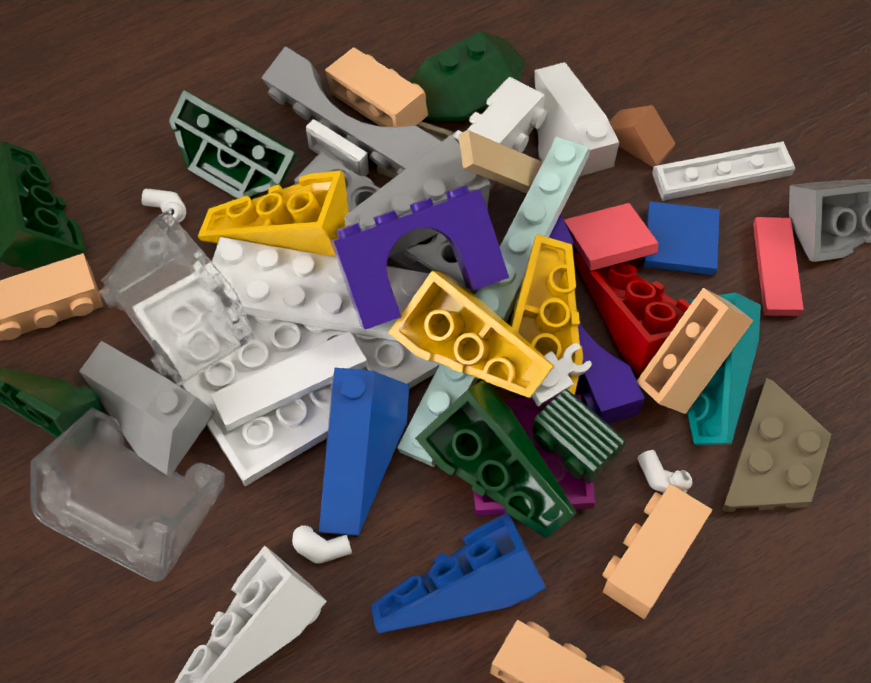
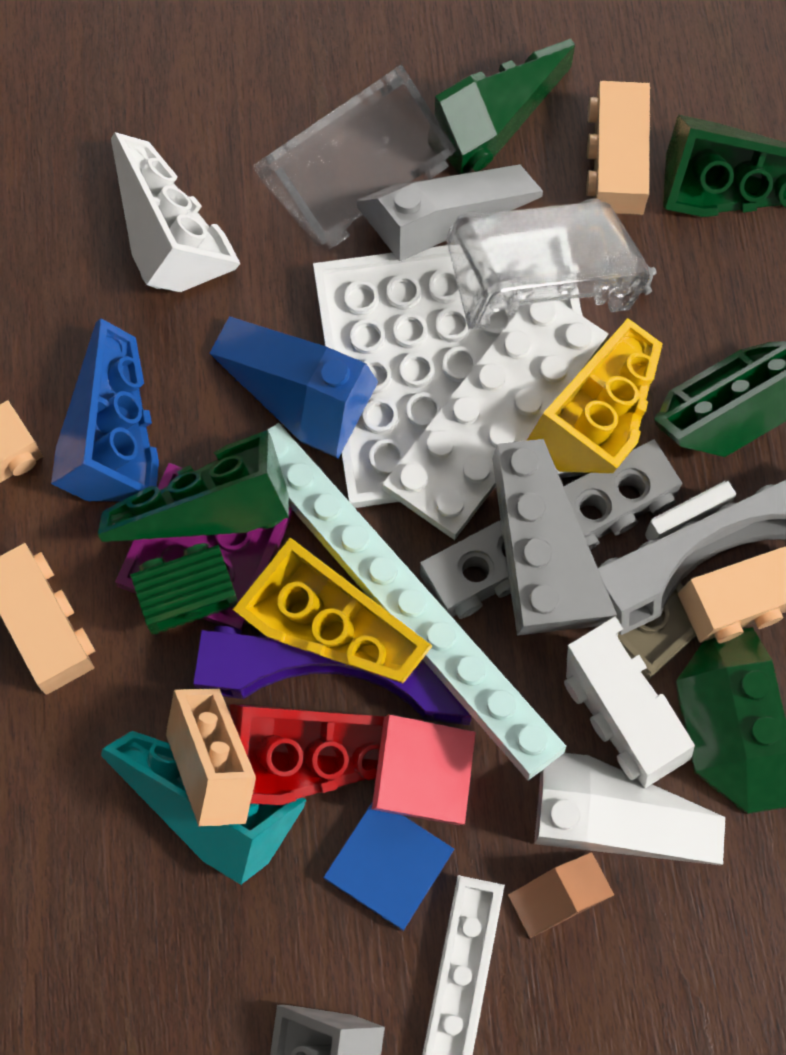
camera: 115 degrees right, 10 degrees up
(166, 201) = (686, 314): white arm -> none
(287, 380) = (399, 342): white tile -> none
(318, 549) = (211, 309): white arm -> none
(365, 251) = (473, 542): dark purple arch -> none
(463, 333) = (360, 515): yellow wedge -> none
(497, 161) = (549, 651): tan tile -> none
(558, 377) = (258, 585): white plate -> none
(658, 477) = (109, 671): white arm -> none
(777, 267) = (296, 959): coral tile -> none
(778, 456) = (71, 812): dark tan wing -> none

